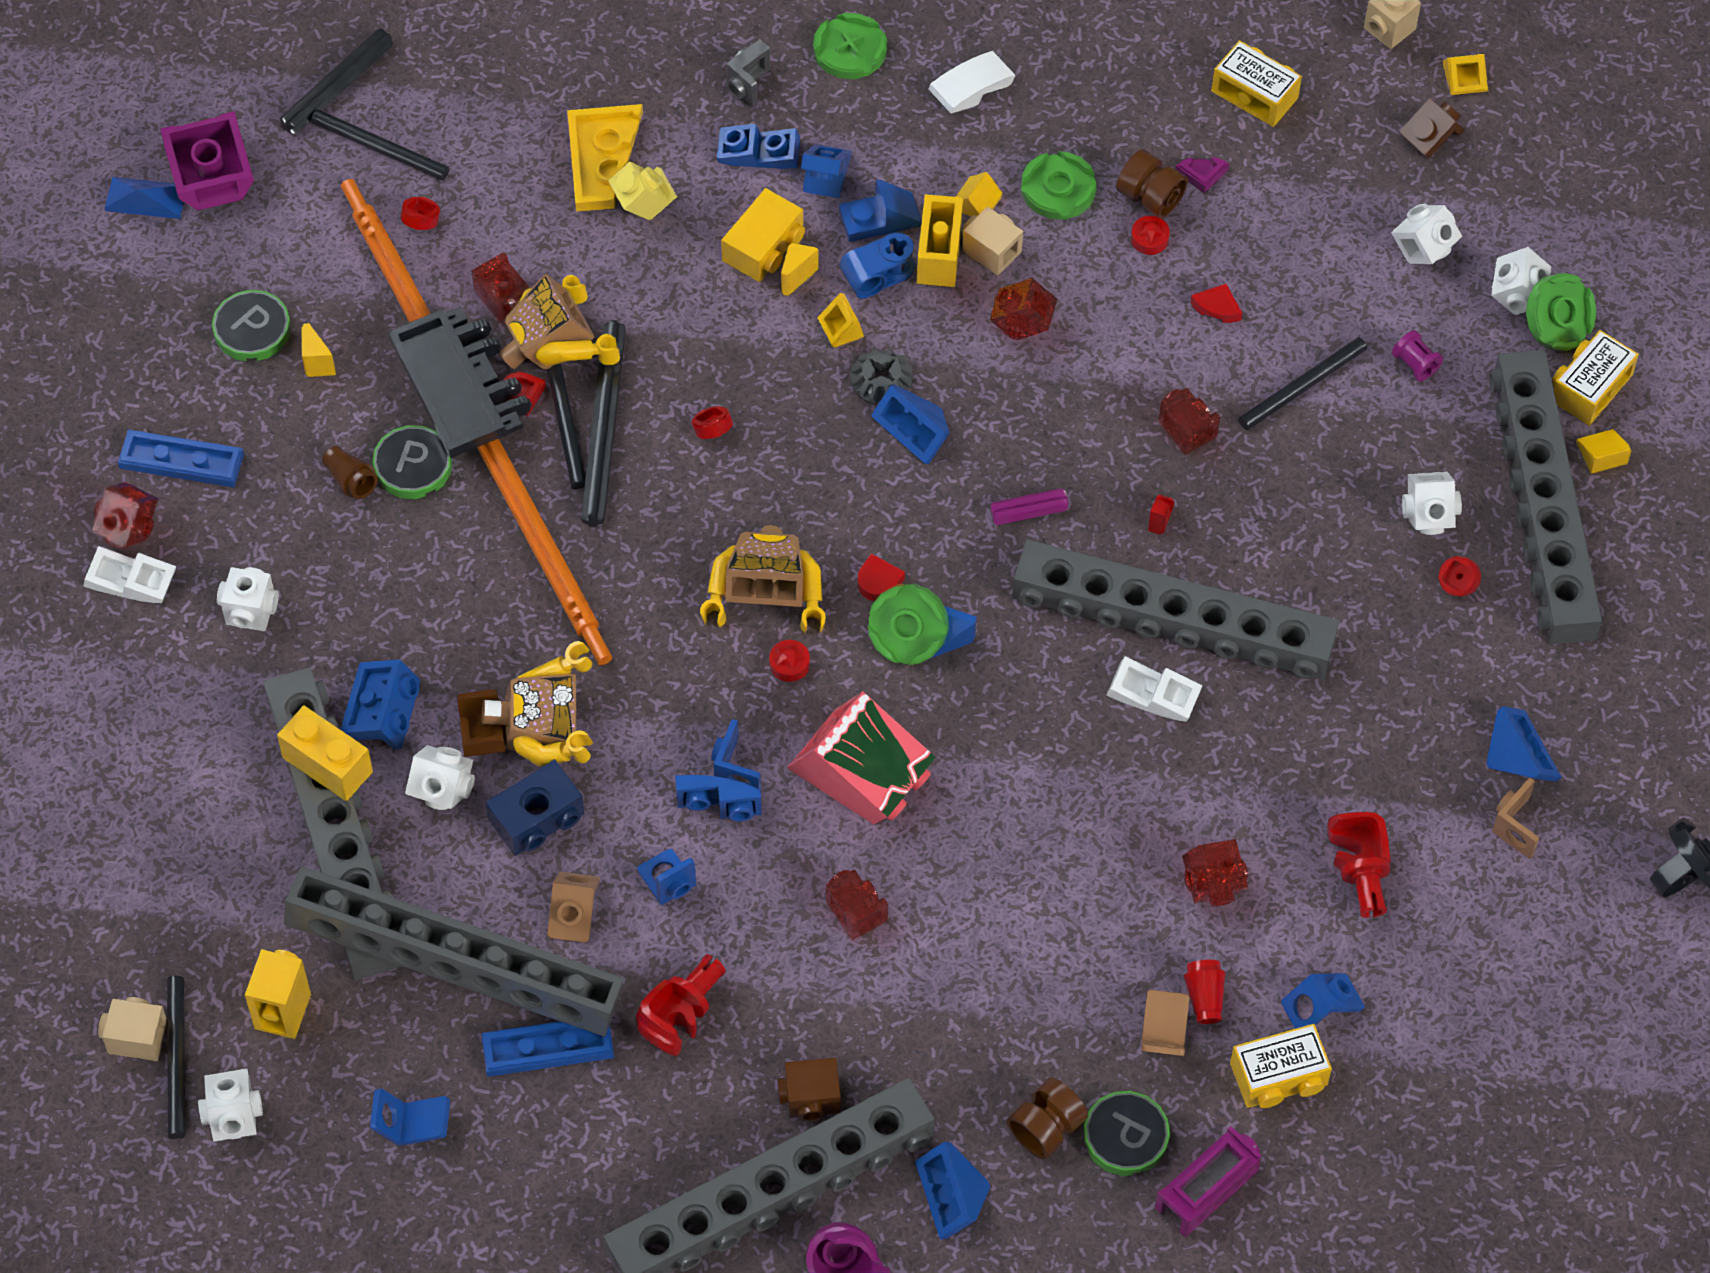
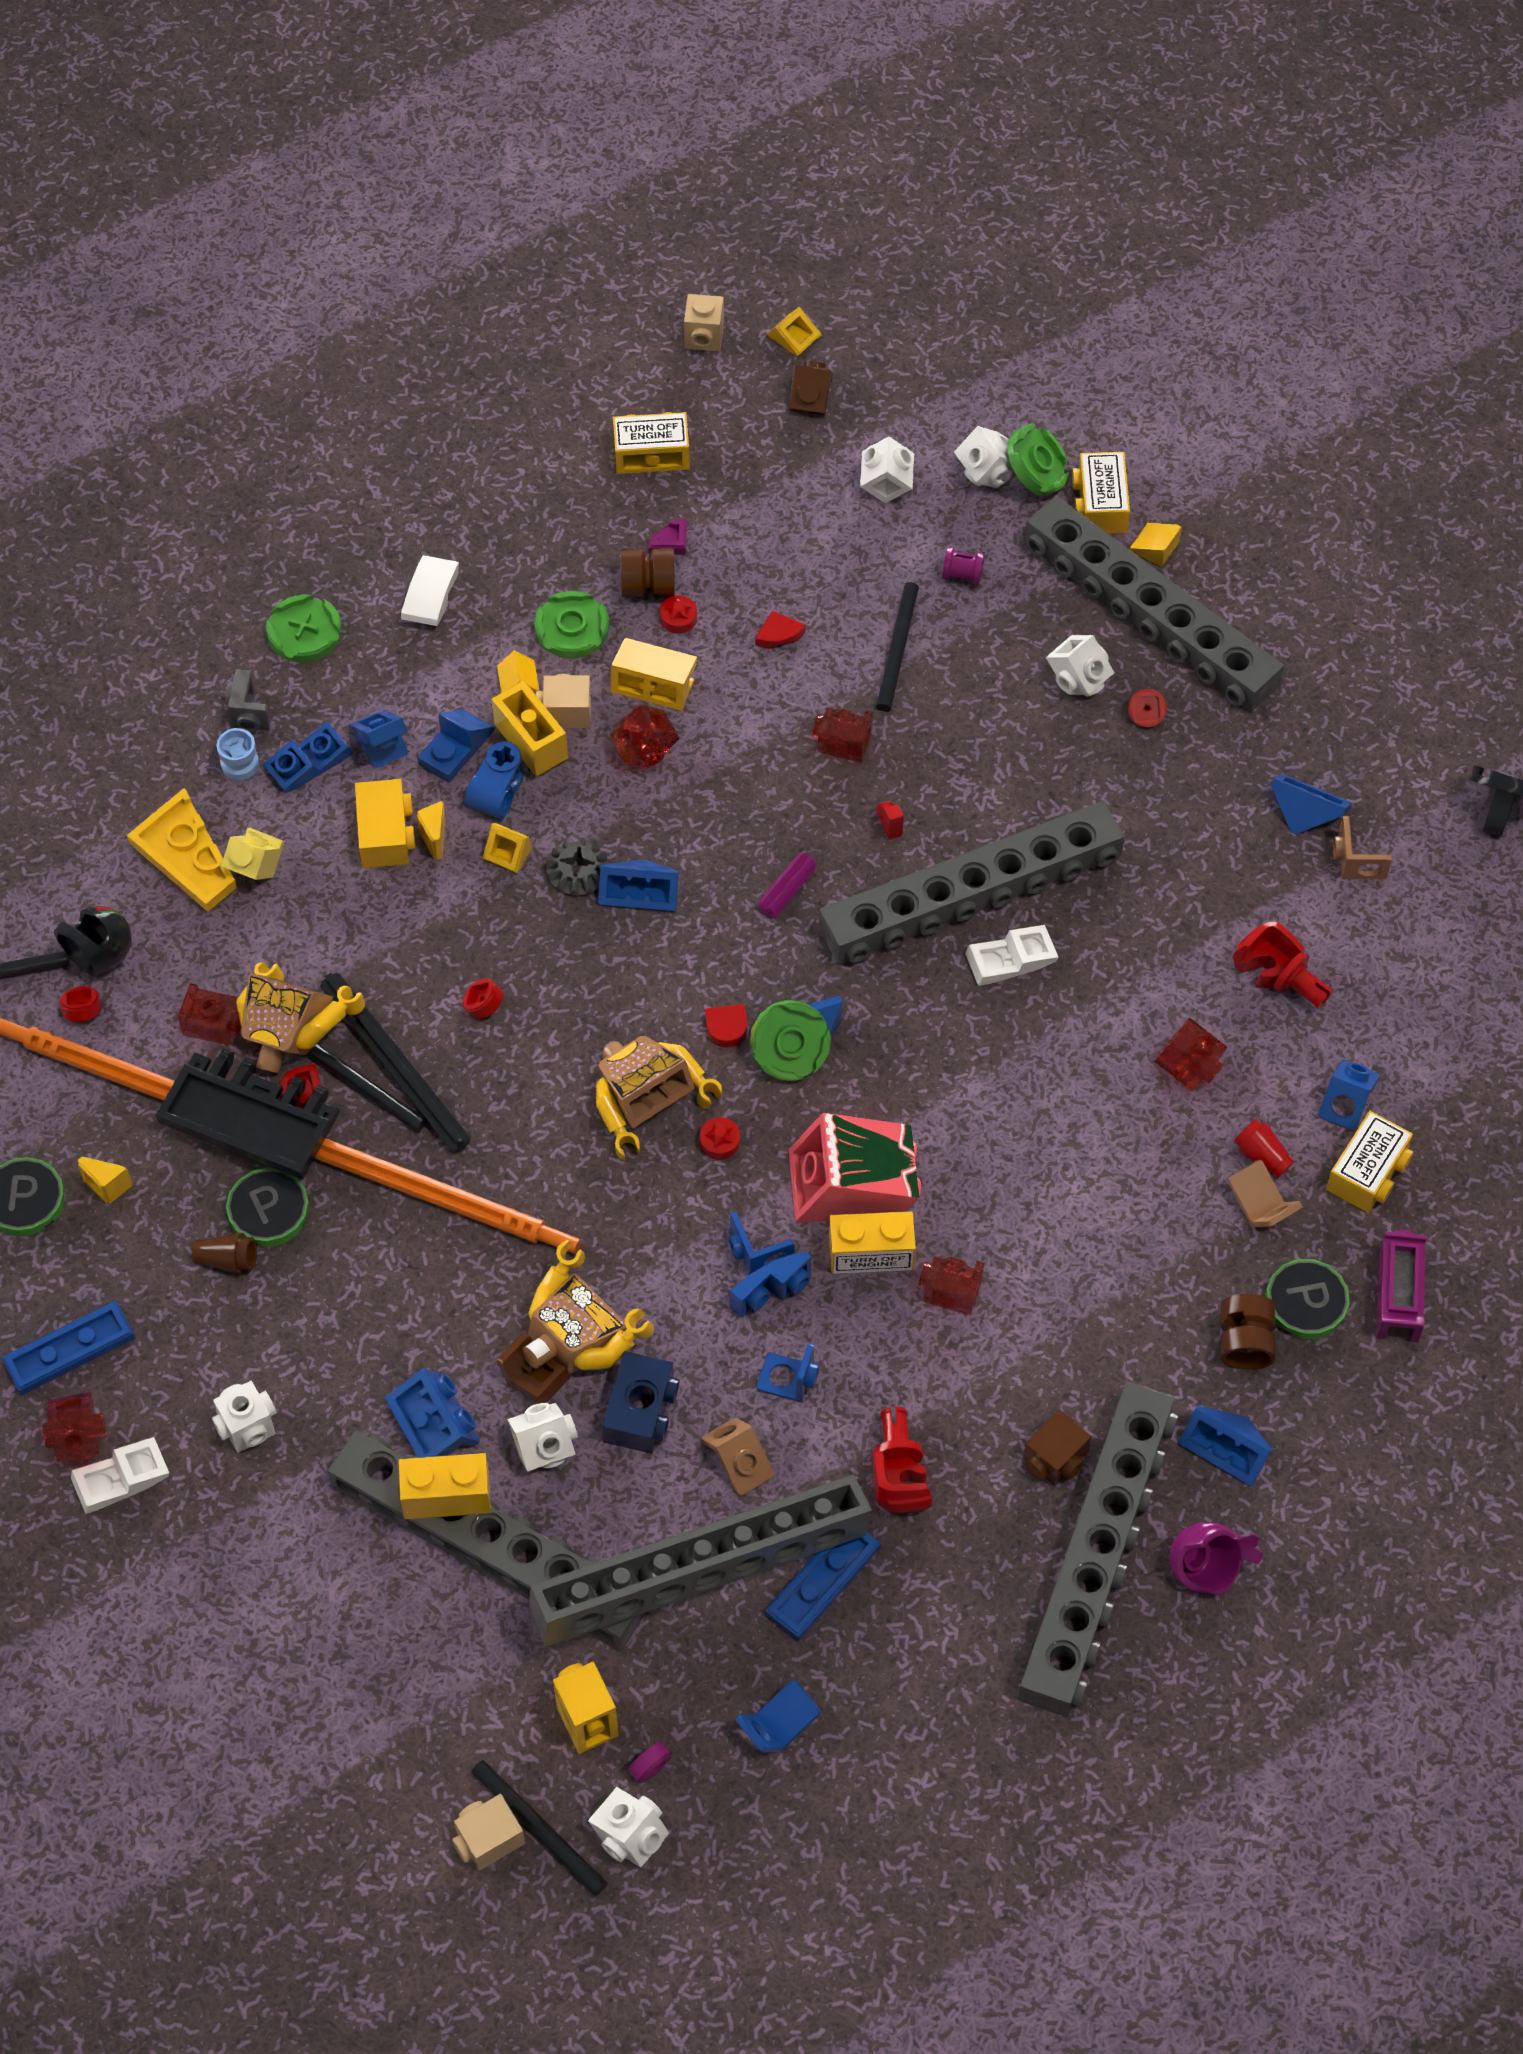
camera: 40 degrees left, 0 degrees up
(292, 1073) = (650, 1762): none -> magenta tile
(472, 173) = (97, 940): none -> black helmet
(705, 106) = (237, 754): none -> light blue wheel
(822, 824) = (872, 1242): none -> yellow brick
(1081, 266) = (652, 674): none -> yellow hinge

